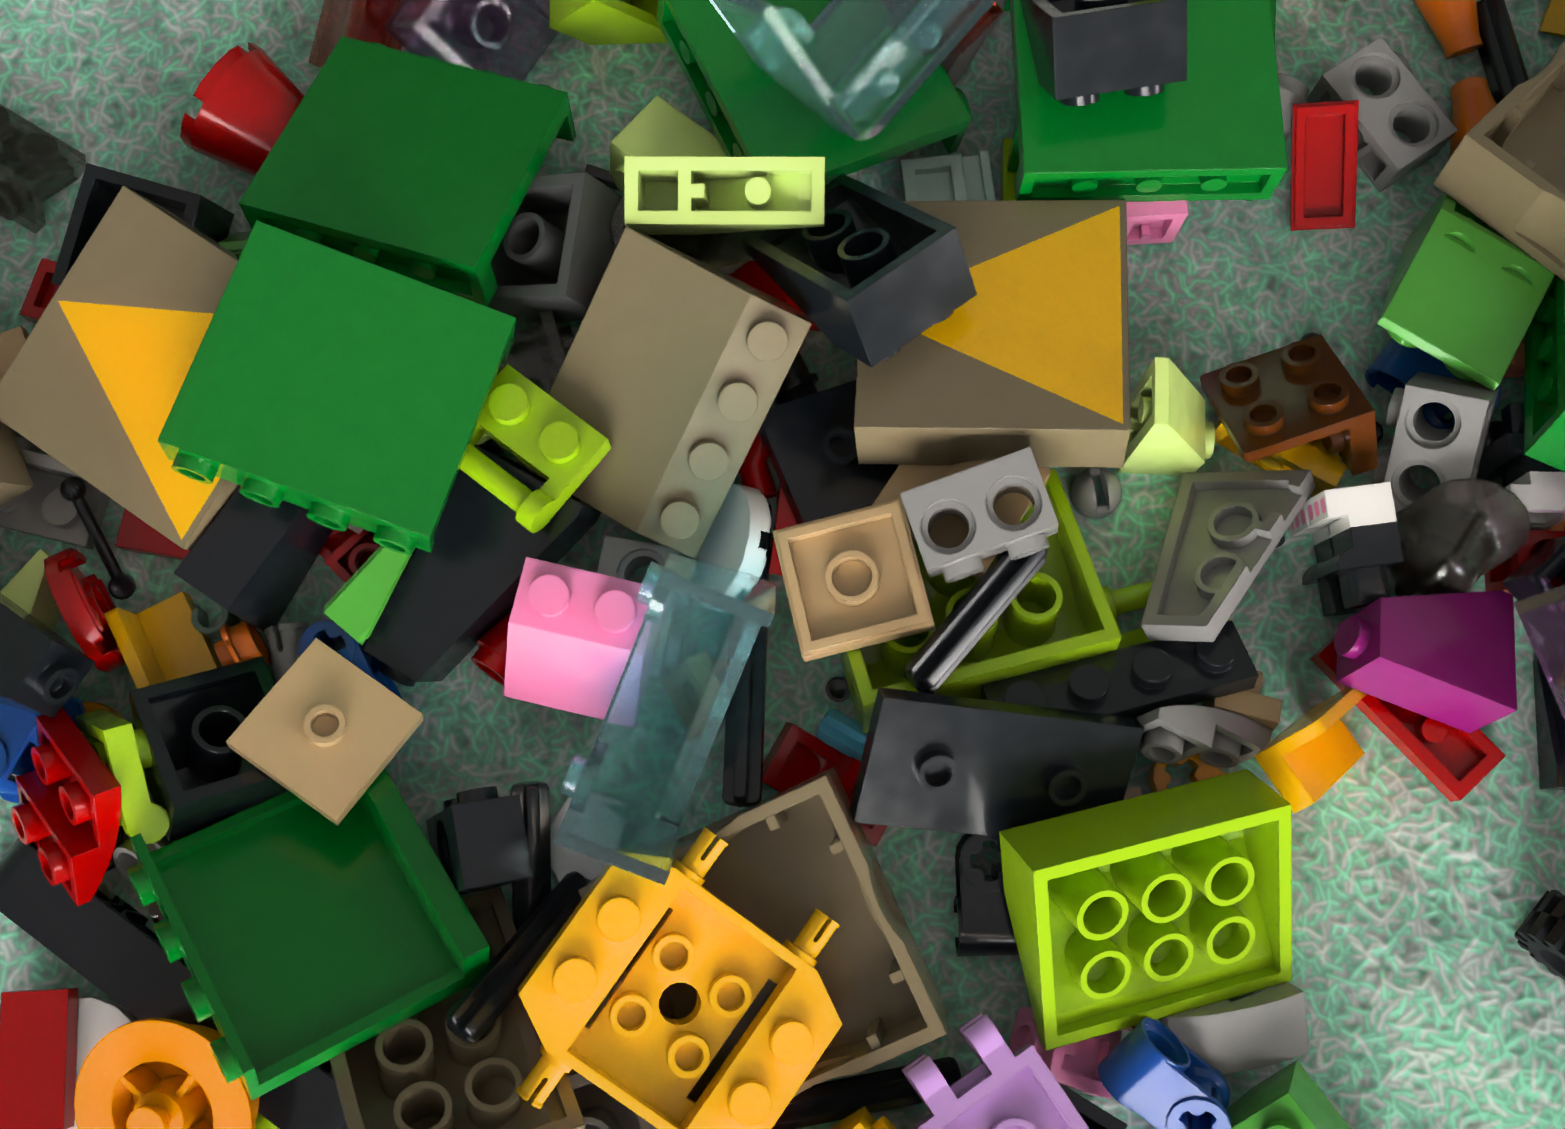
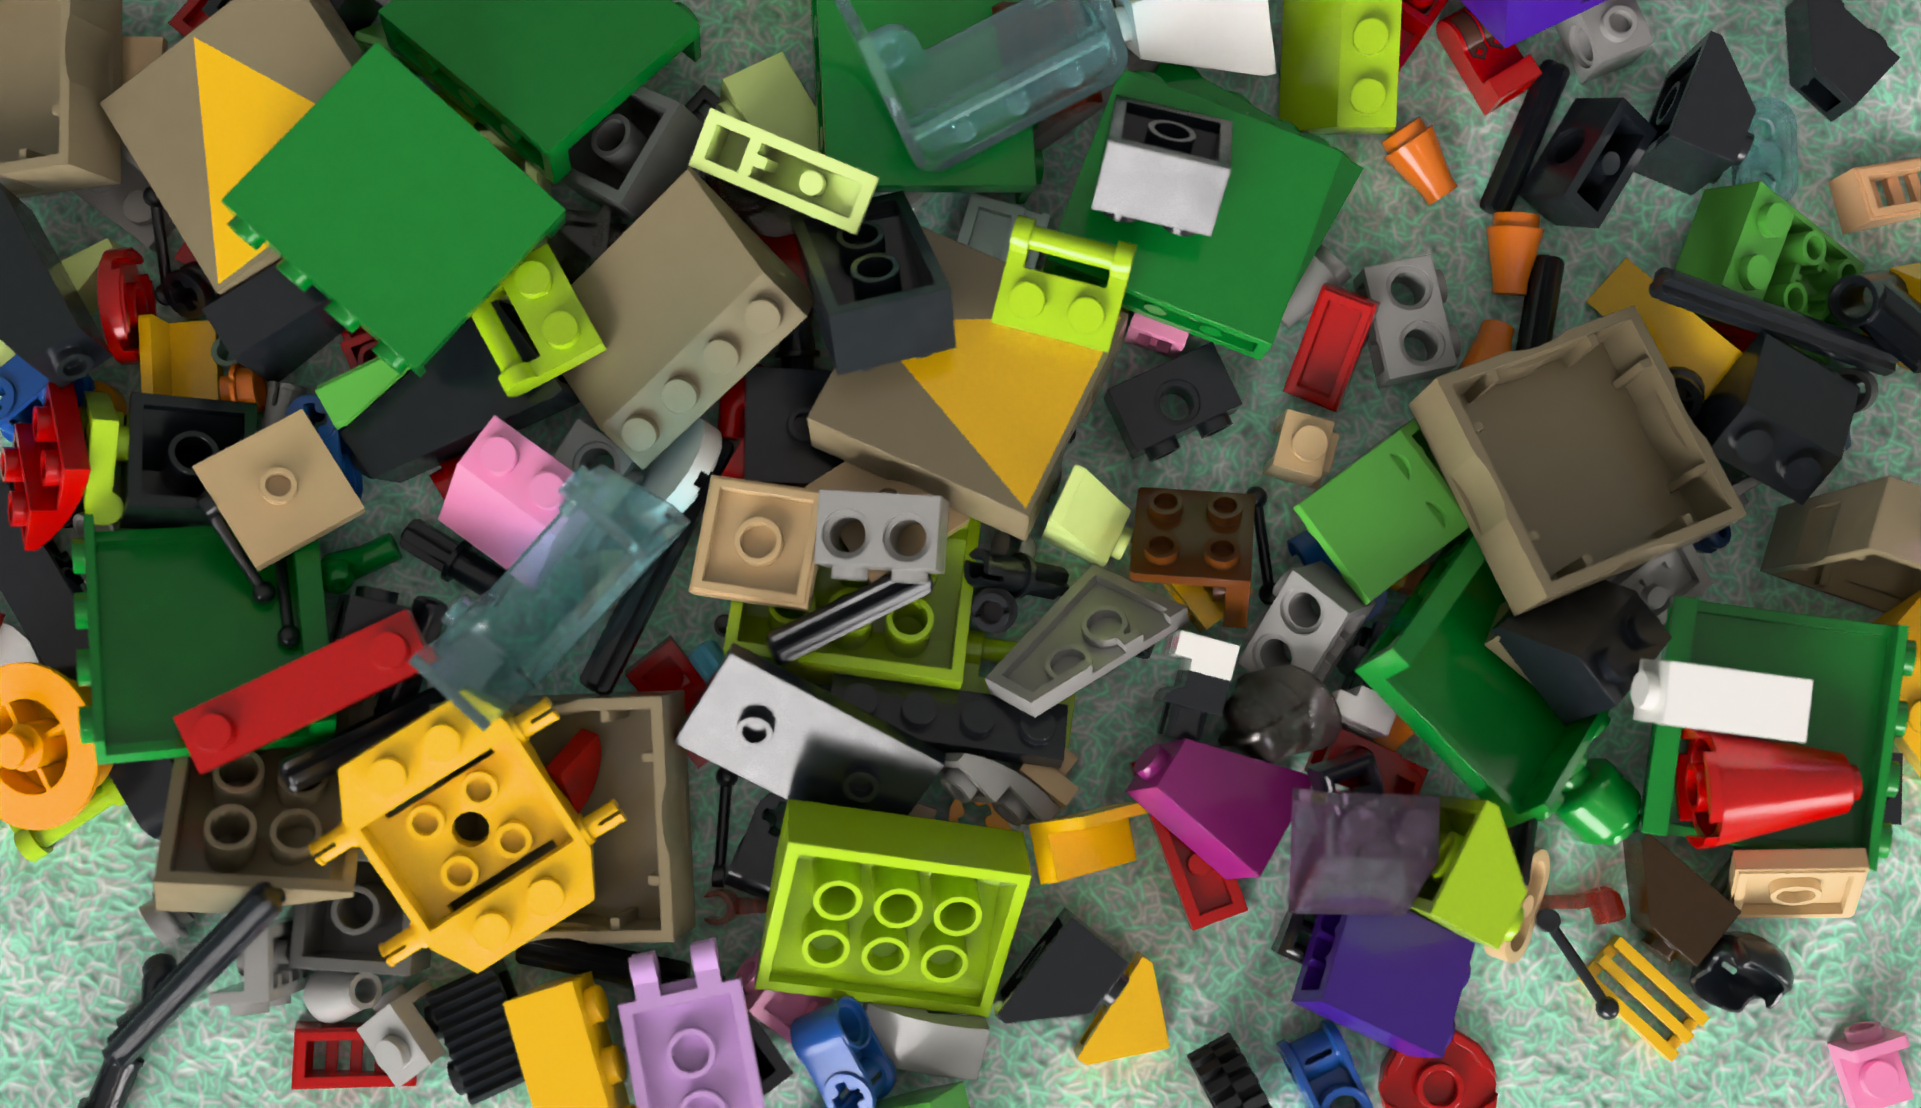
camera: 15 degrees right, 5 degrees up
(136, 580) = (181, 296): none -> black bush
(347, 846) = (262, 591): none -> black hinge
(395, 880) = (289, 634): none -> black hinge
(430, 779) = (347, 565): none -> green arm
(443, 929) = (301, 692): none -> red plate
(530, 734) = (450, 557): none -> black axle
(758, 892) = (577, 767): none -> red tile
(907, 844) = (726, 780): none -> black hinge
(980, 973) = (735, 906): none -> clear red hand
(1058, 212) = (1058, 304): none -> lime plate
(1116, 554) = (994, 610): none -> black axle
(1117, 512) = (1016, 574): none -> black axle
(1207, 251) = (1196, 378): none -> black brick
(1347, 272) = (1303, 449): none -> tan window
(1357, 898) = (1063, 975): none -> black slope
(1435, 918) = (1131, 1023): none -> yellow slope

